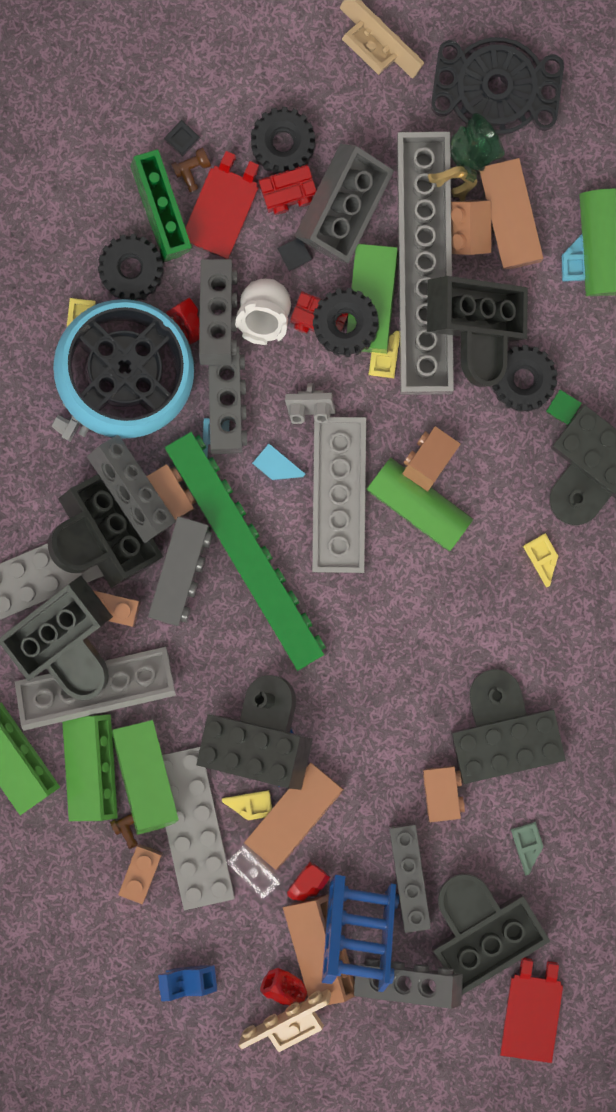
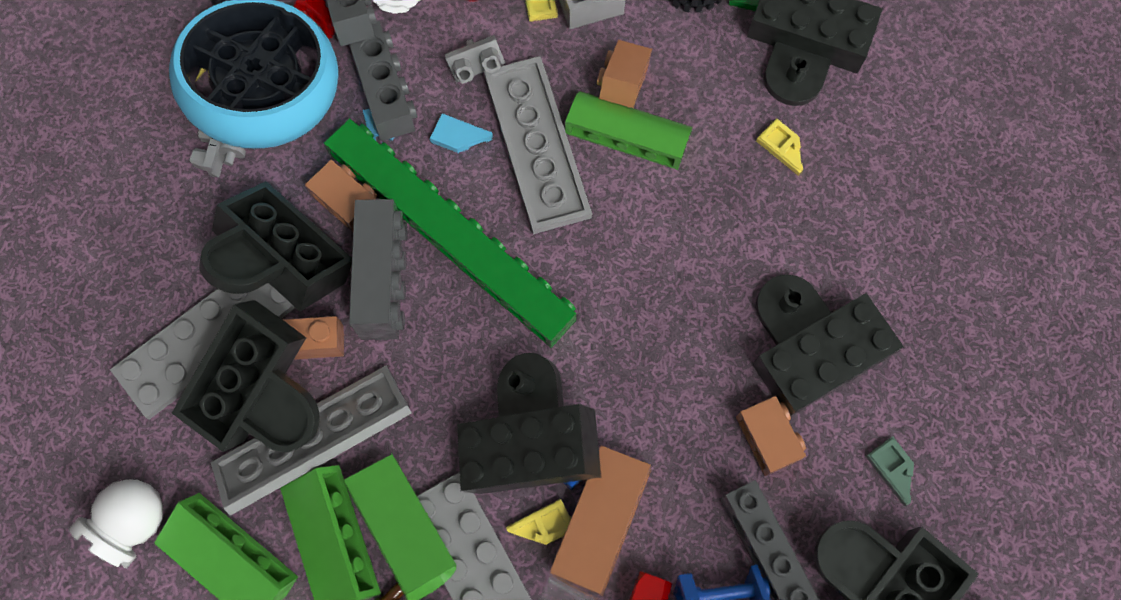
camera: 20 degrees left, 15 degrees down
(131, 488) = (293, 190): dark grey brick -> none

